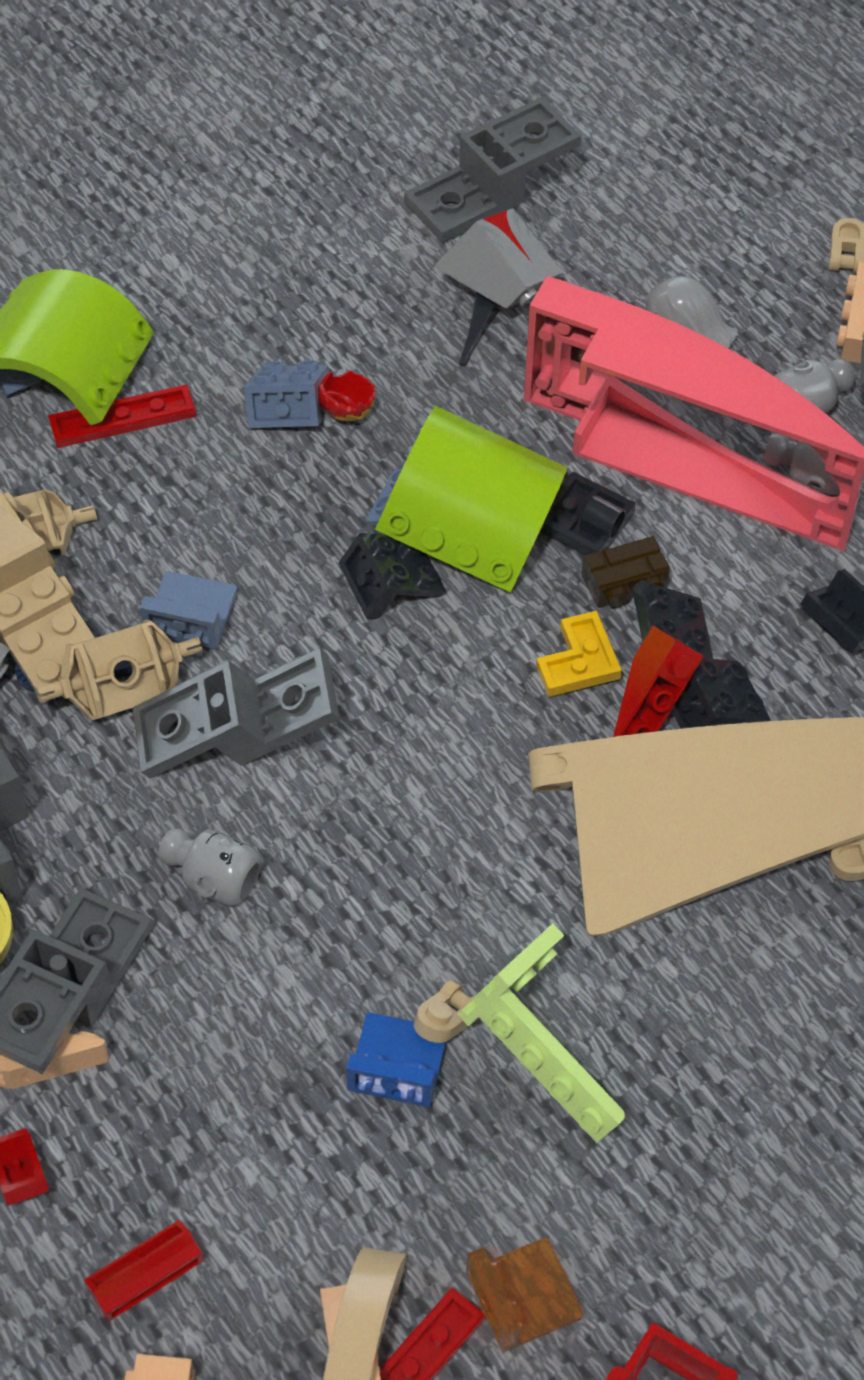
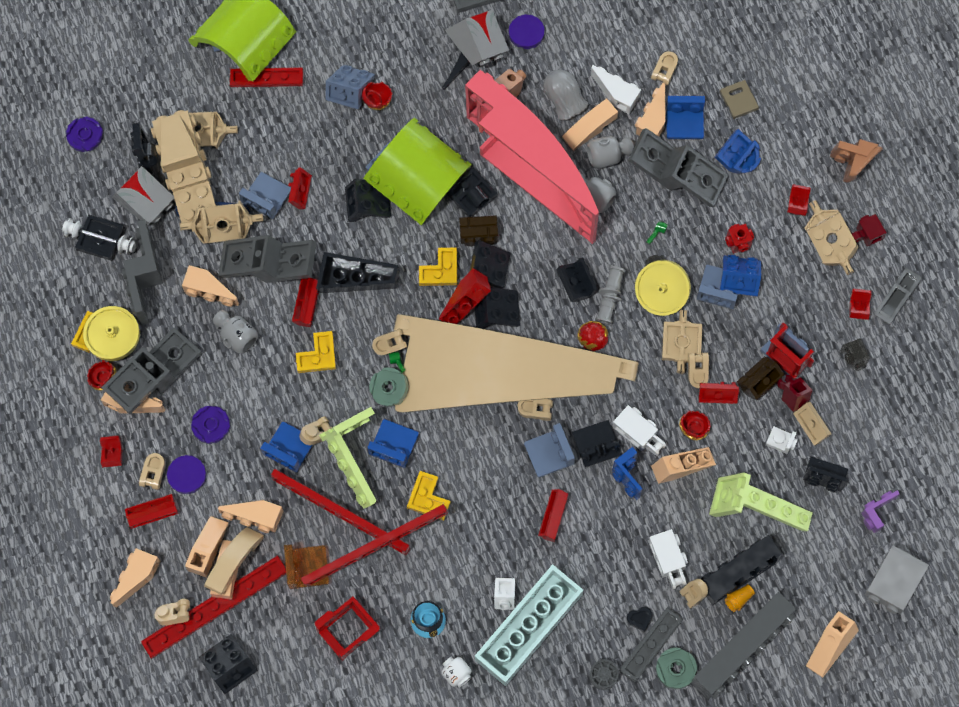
camera: 20 degrees right, 15 degrees up
(121, 1171) = (153, 464): none -> tan plate
(123, 794) = (202, 283): none -> light nougat slope
(196, 1174) = (186, 474): none -> dark purple tile
(213, 1073) = (206, 428): none -> dark purple tile
(251, 580) = (299, 188): none -> red plate
(292, 1313) = (206, 547): none -> light nougat slope
(336, 777) = (305, 302): none -> red piece
(377, 1211) = (256, 513): none -> light nougat slope
(405, 868) = (322, 358): none -> yellow plate
(421, 700) = (350, 274): none -> black wedge
(521, 814) = (383, 345): none -> tan plate
(555, 836) = (395, 359): none -> green hand
(556, 1159) = (336, 509): none -> red tile
(578, 244) = (526, 31): none -> dark purple tile
(580, 905) = (399, 384): none -> sand green plate
(612, 996) = (393, 443): none -> blue bracket
(660, 1201) = (375, 545): none -> red tile
(718, 1091) = (422, 496): none -> yellow plate
(771, 339) = (590, 124): none -> light nougat slope
(780, 296) = (619, 93): none -> white slope
(823, 1331) = (428, 619): none -> medium azure piece

